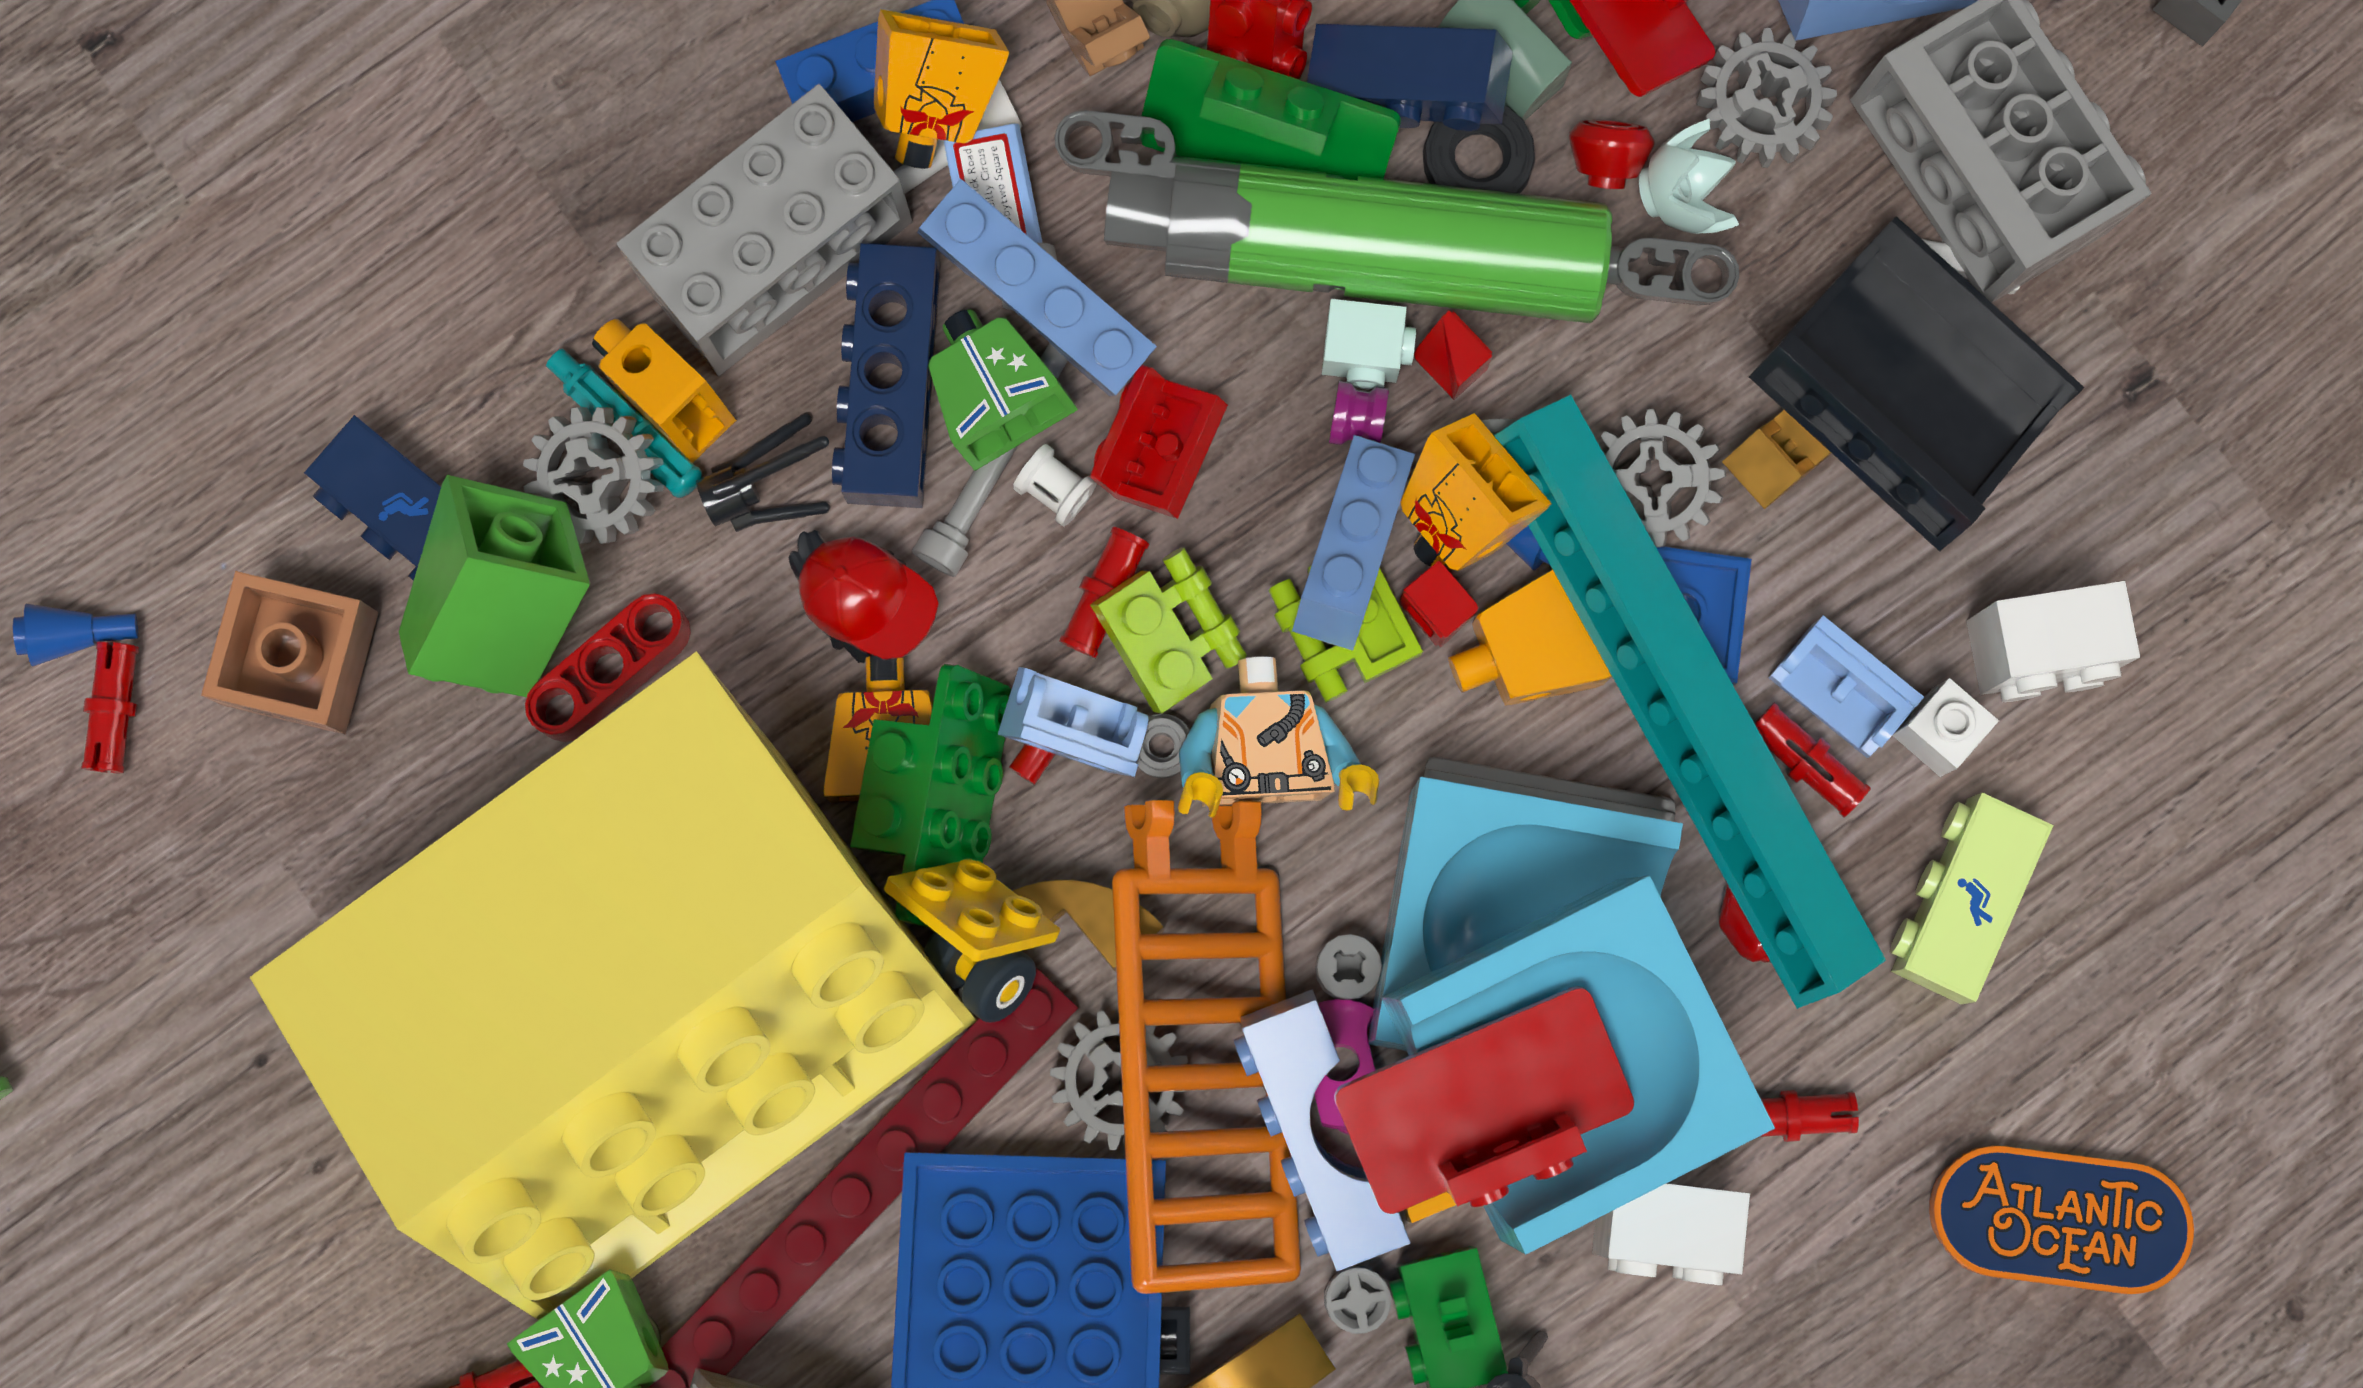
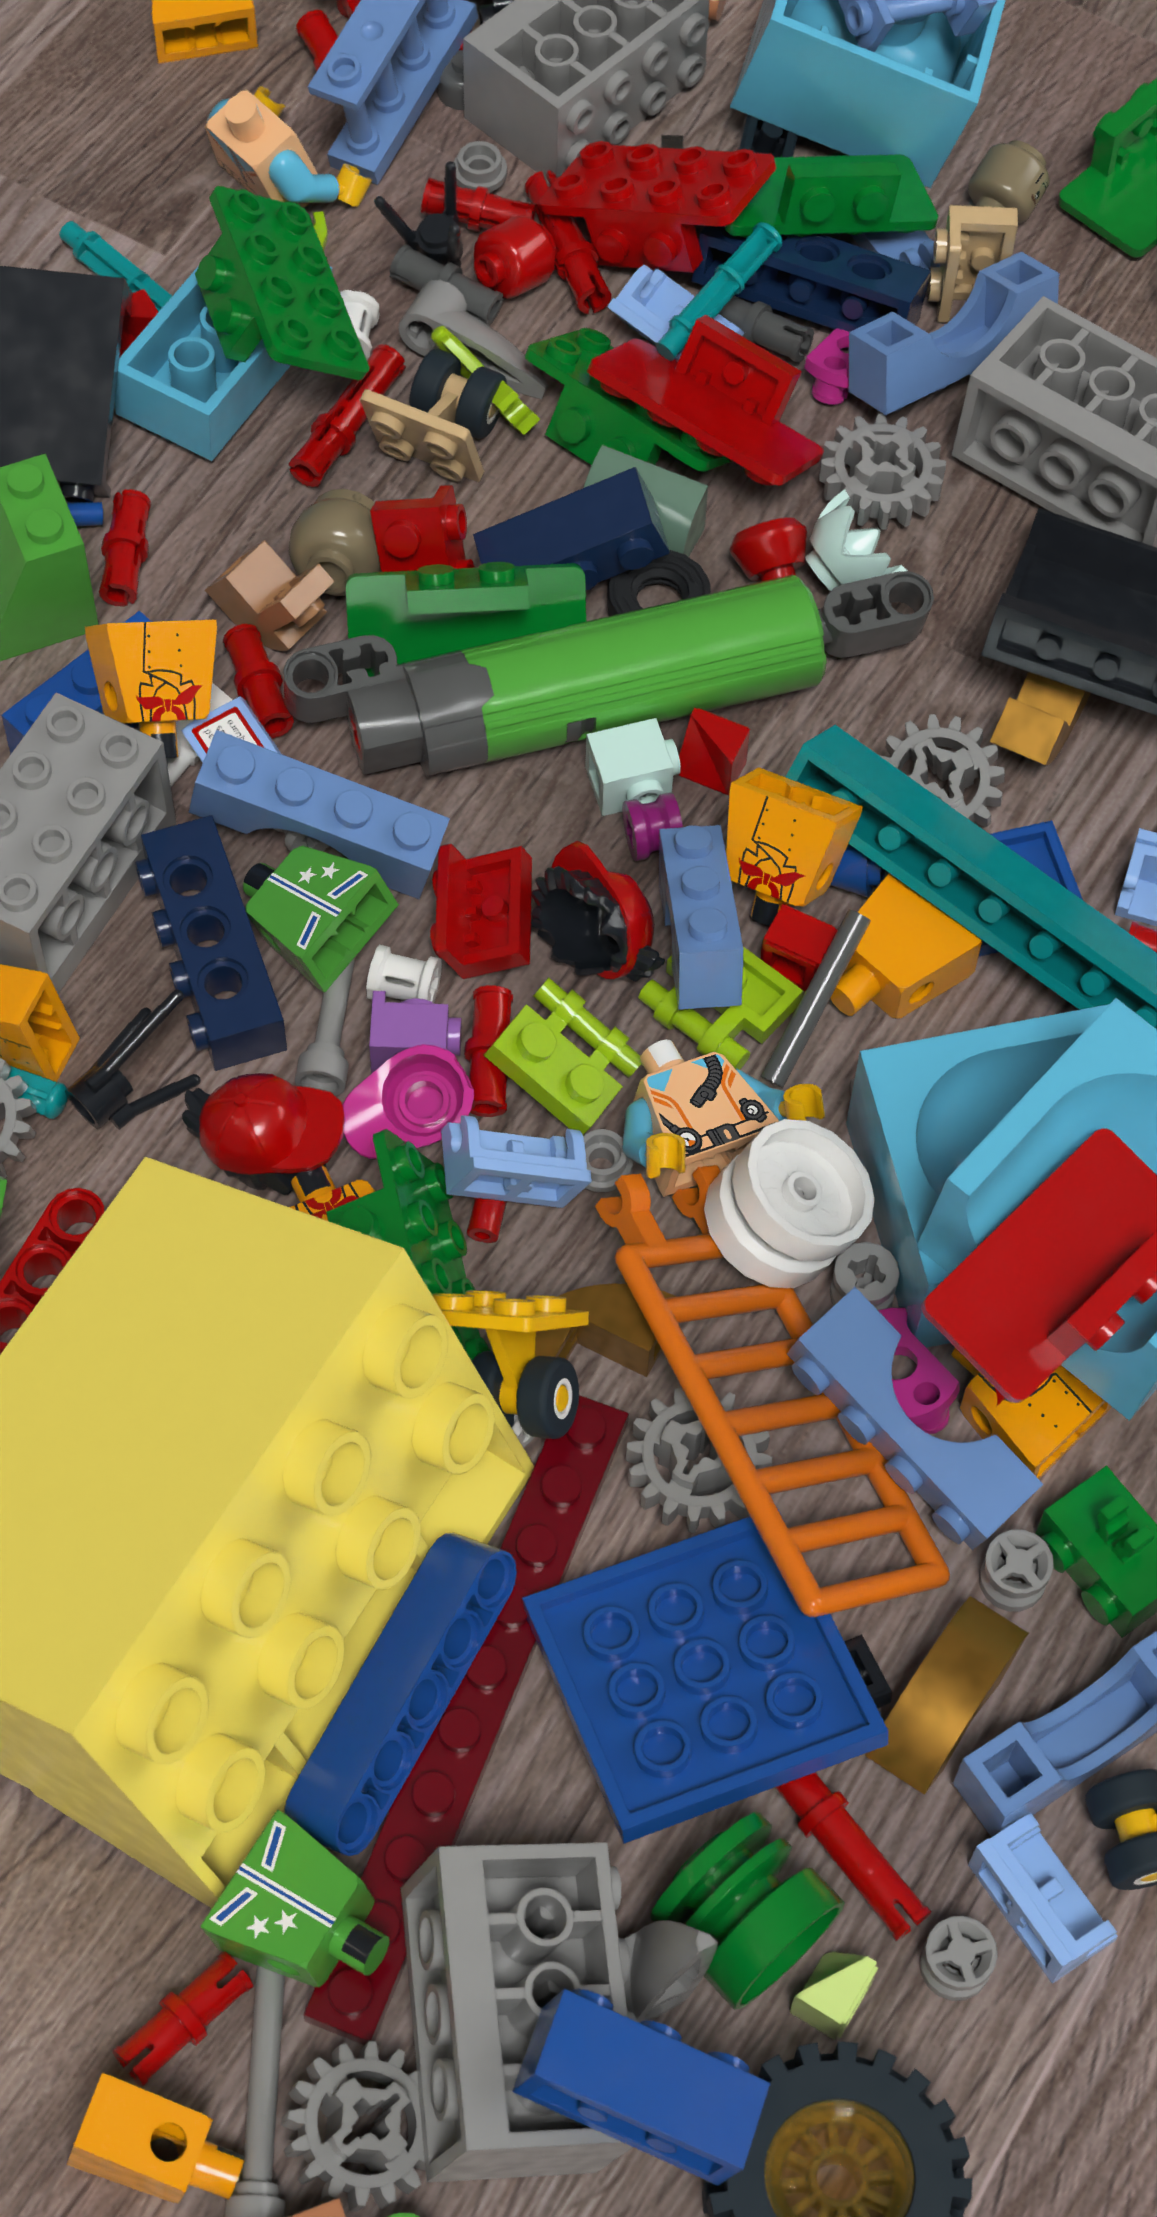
camera: 25 degrees left, 20 degrees down
(765, 1194) = (401, 1693): none -> blue beam
(1001, 625) = (409, 1096): none -> dark pink piece
(1036, 551) = (410, 1024): none -> medium lavender brick
(1045, 98) = (258, 679): none -> red pin
(1258, 498) = (595, 917): none -> black hair
(1304, 877) = (789, 1204): none -> white wheel
(1429, 668) = (816, 998): none -> dark grey bar

